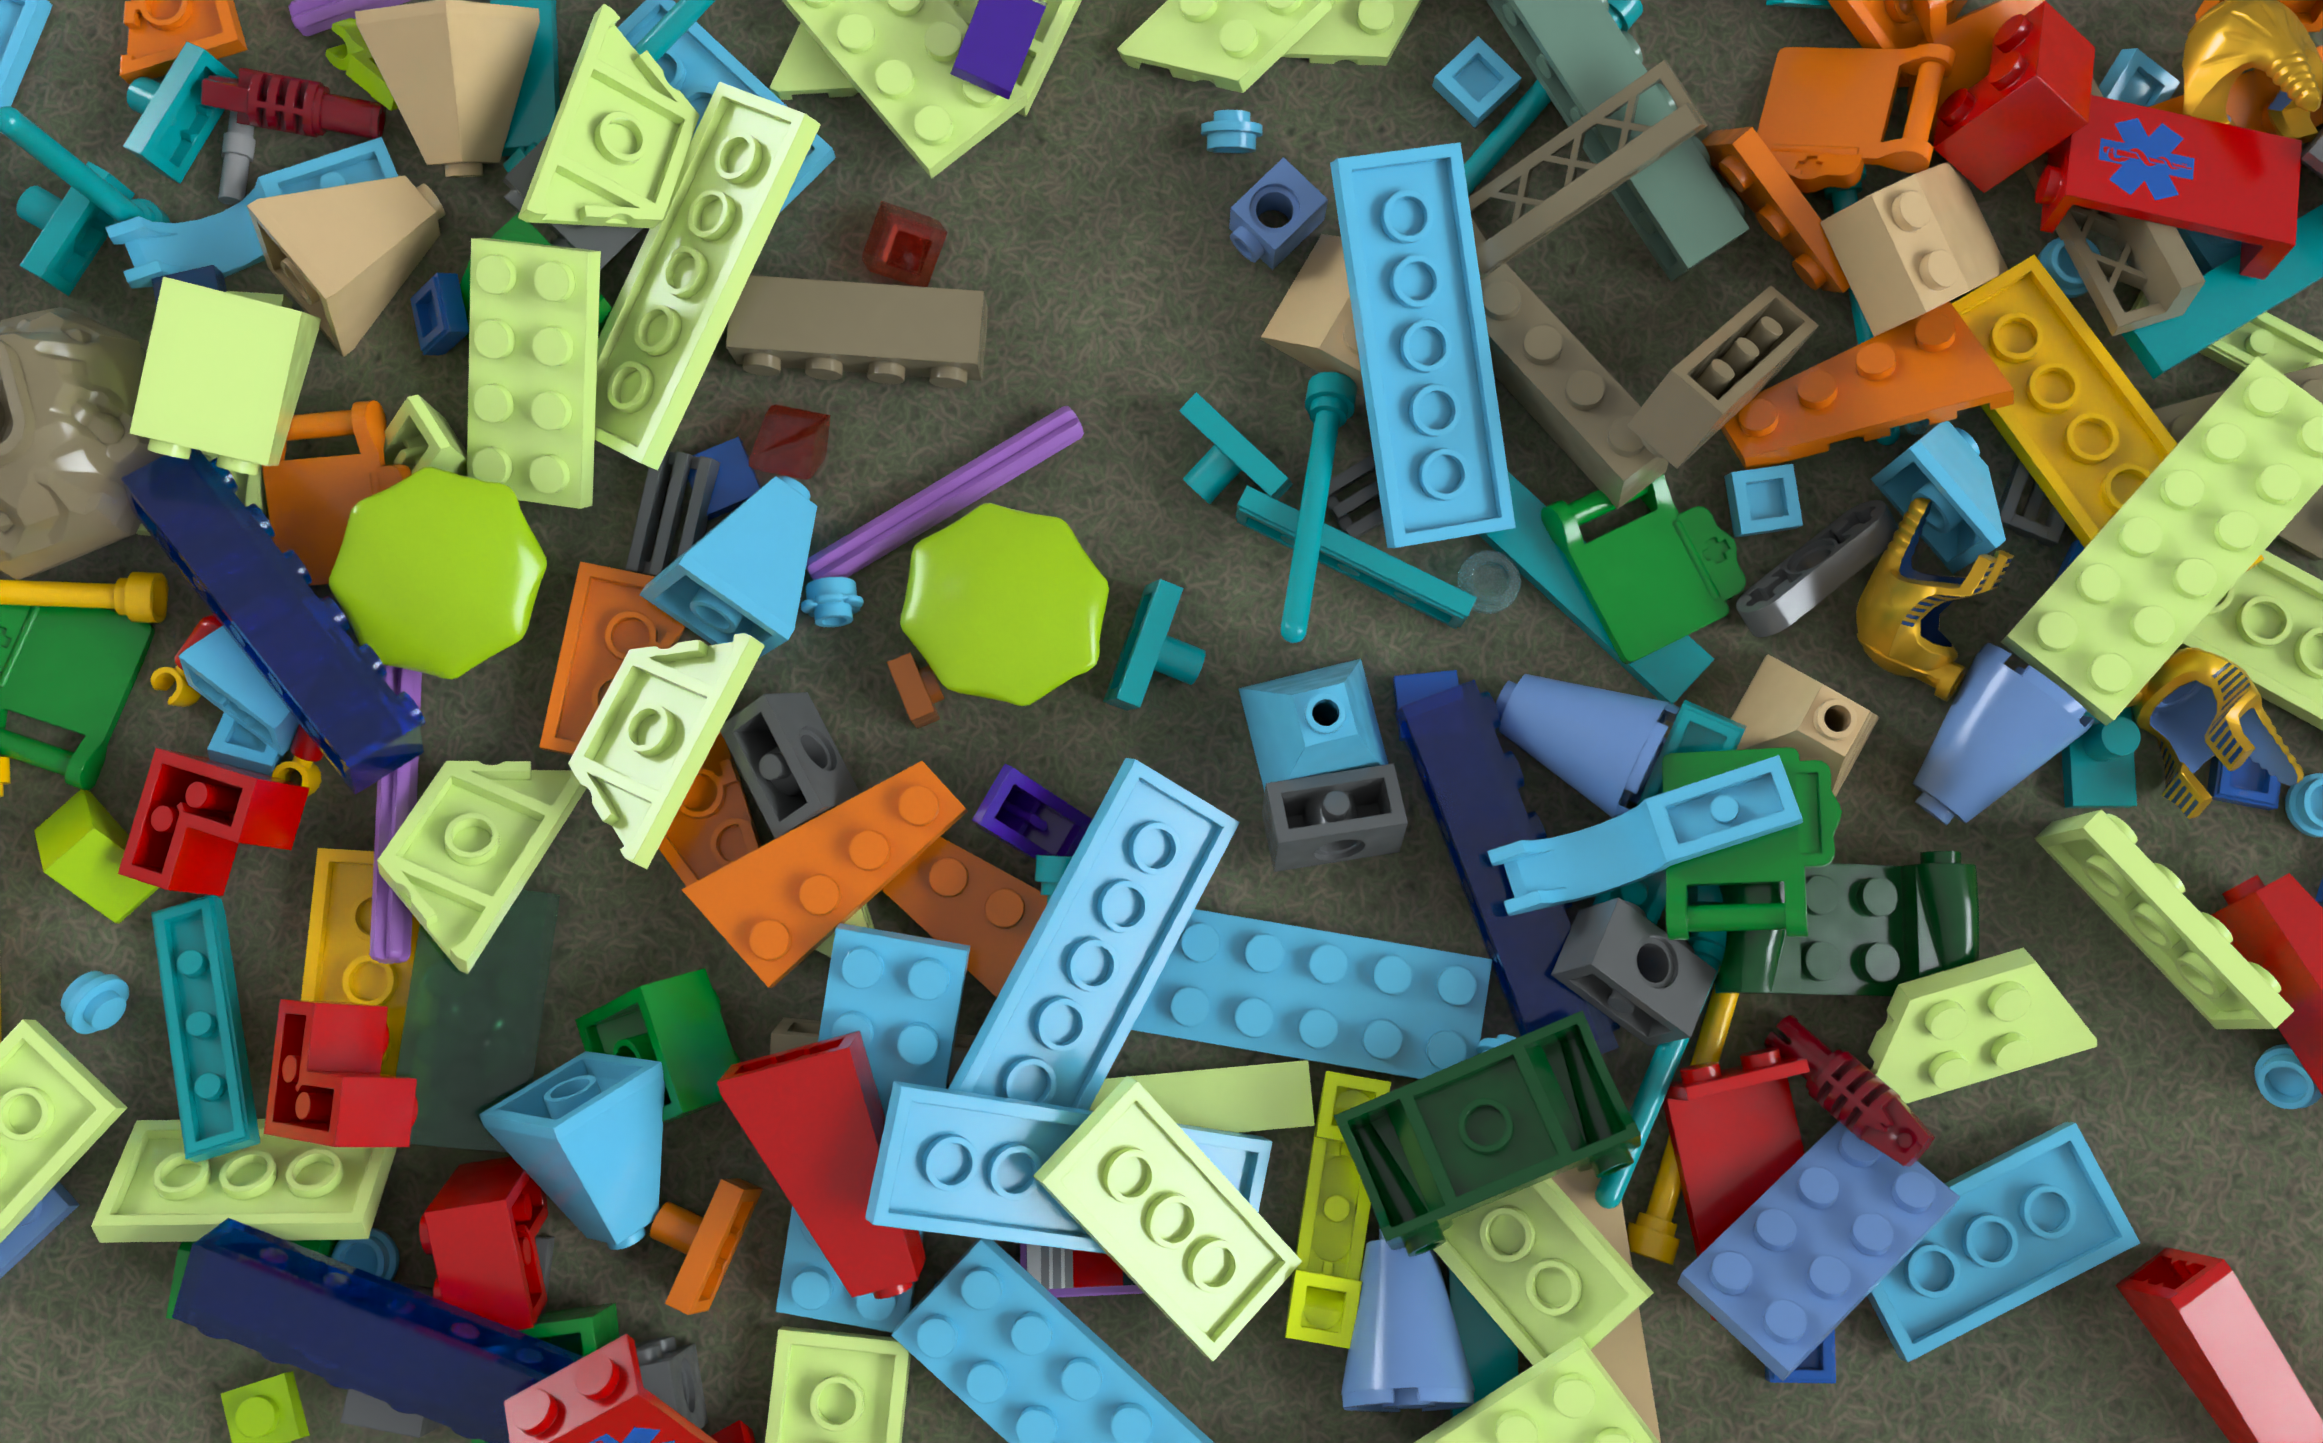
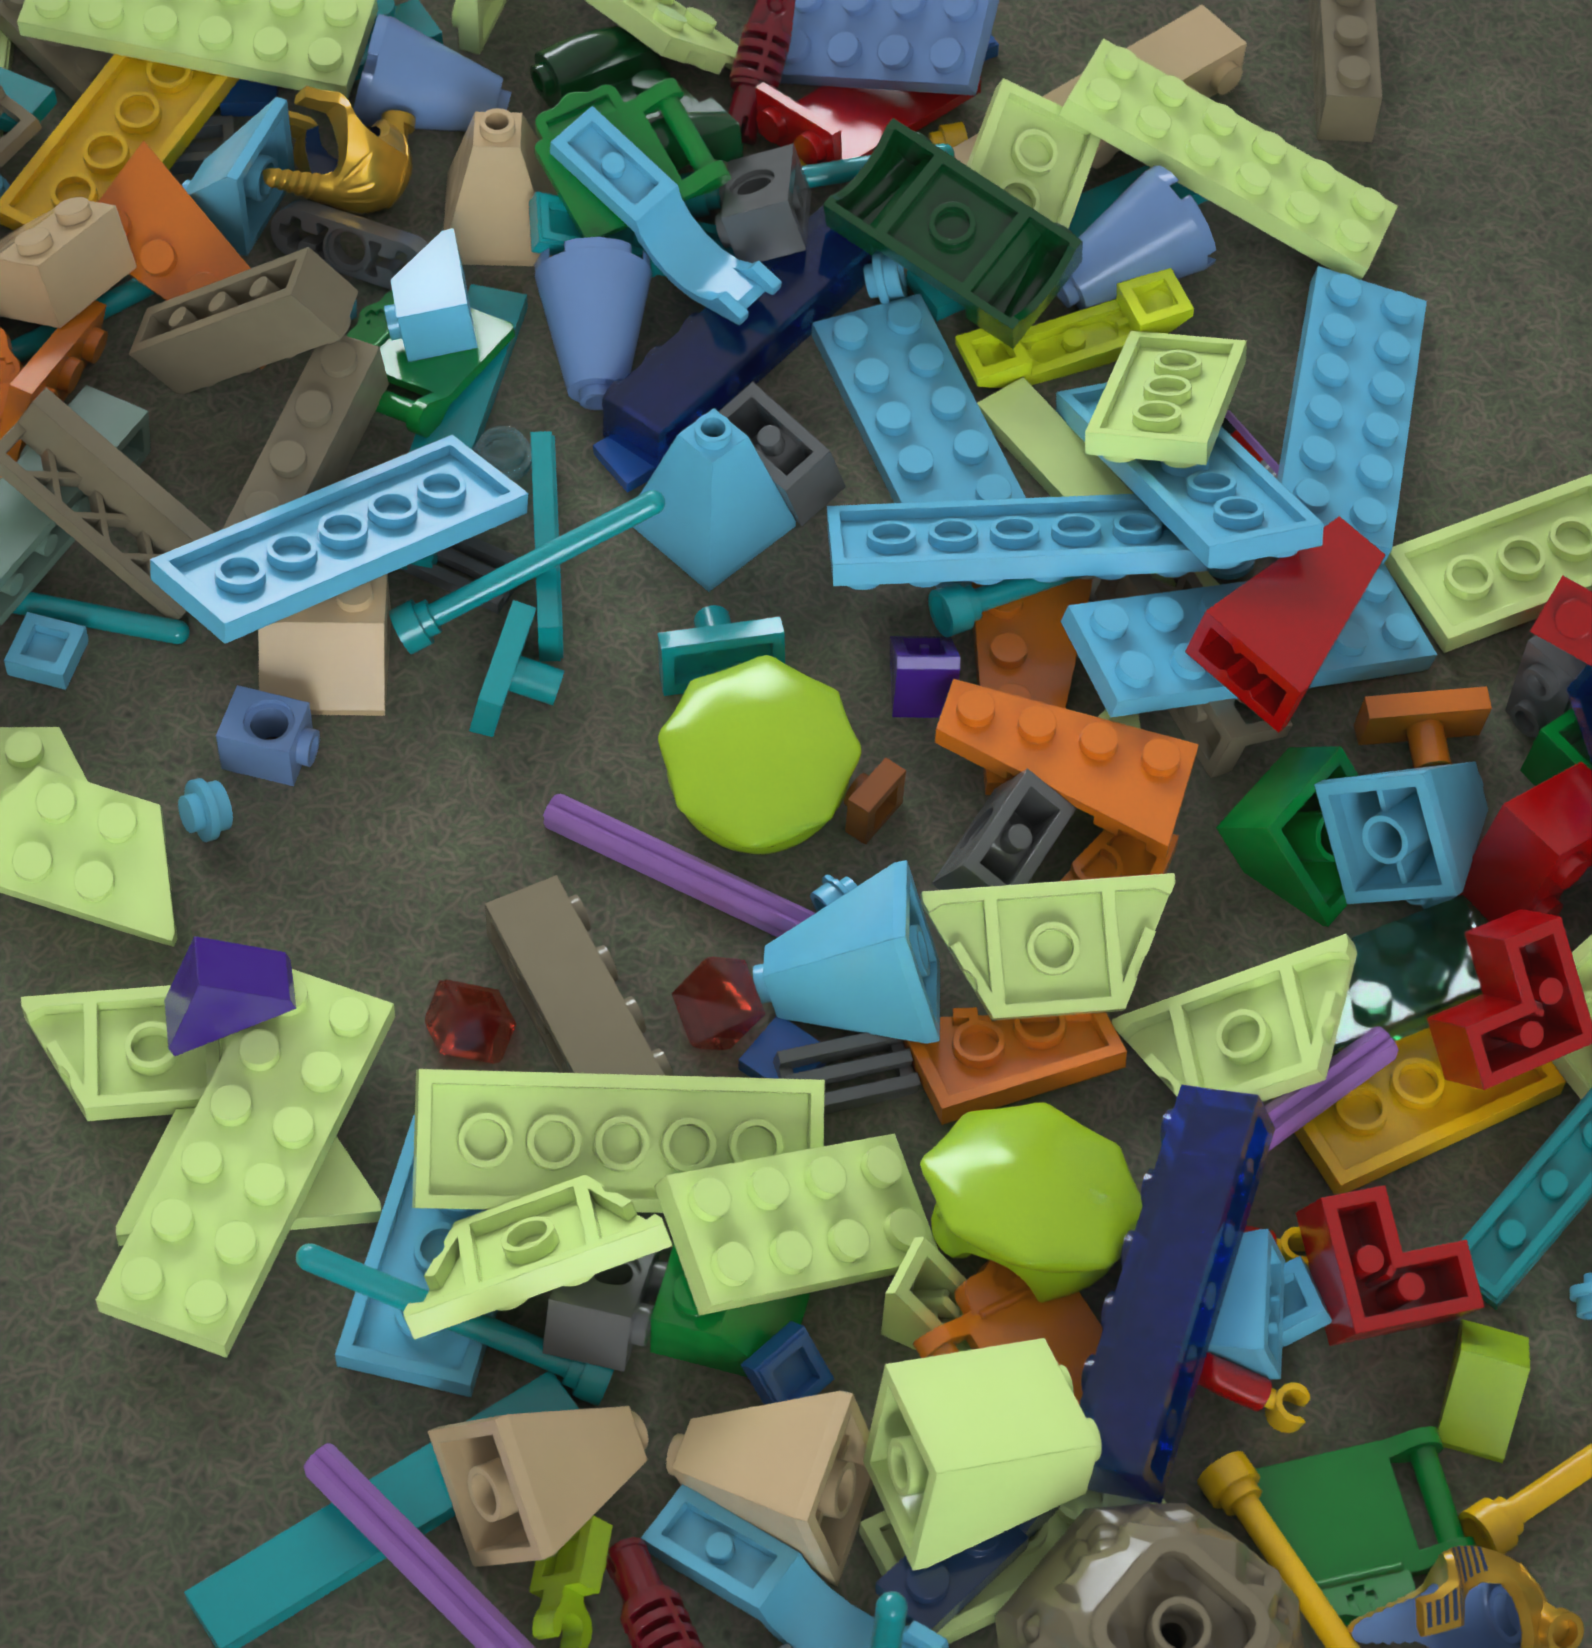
camera: 125 degrees left, 25 degrees down
(1691, 595) = (432, 302): none -> medium azure slope

